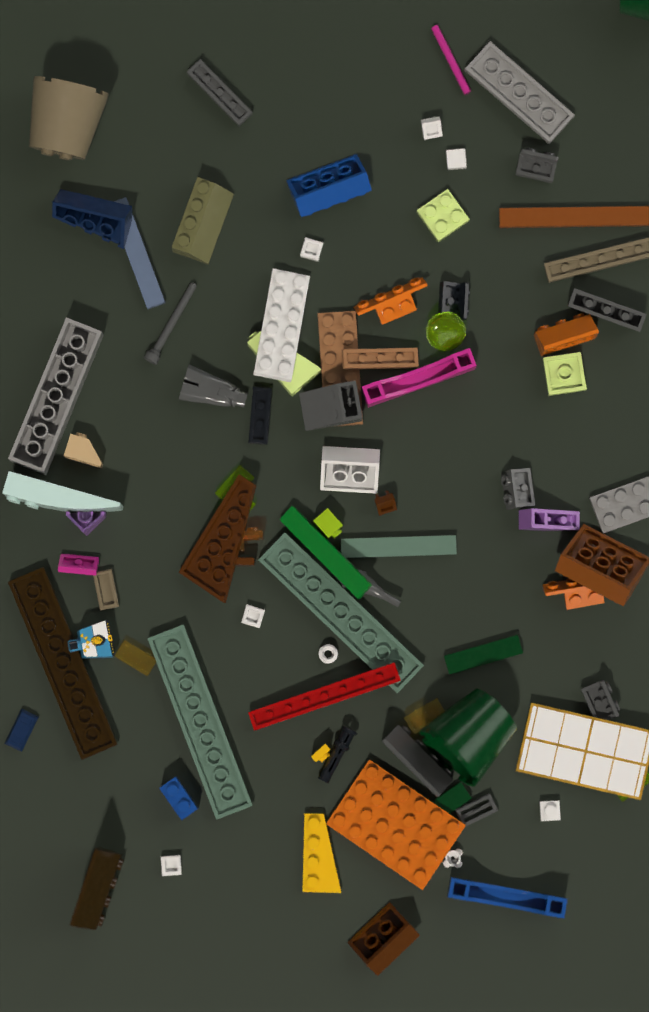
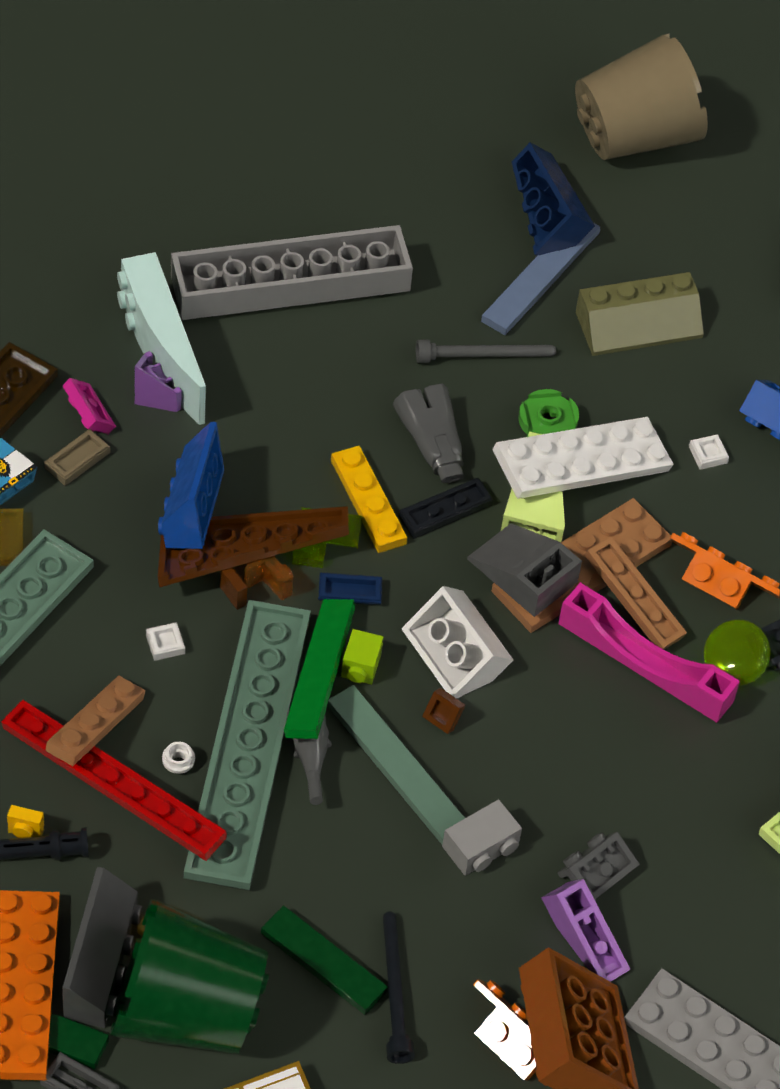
camera: 50 degrees right, 30 degrees down
(82, 450) = (243, 336): tan slope -> none
(178, 549) = (193, 491): none -> blue slope
(229, 452) = (368, 499): none -> yellow plate
(237, 309) = (547, 401): none -> bright green plate
(280, 500) = (344, 586): none -> dark blue tile
(285, 684) = (95, 720): none -> medium nougat plate
(468, 534) = (482, 838): none -> light grey brick
(551, 649) = (400, 1047): none -> black piece

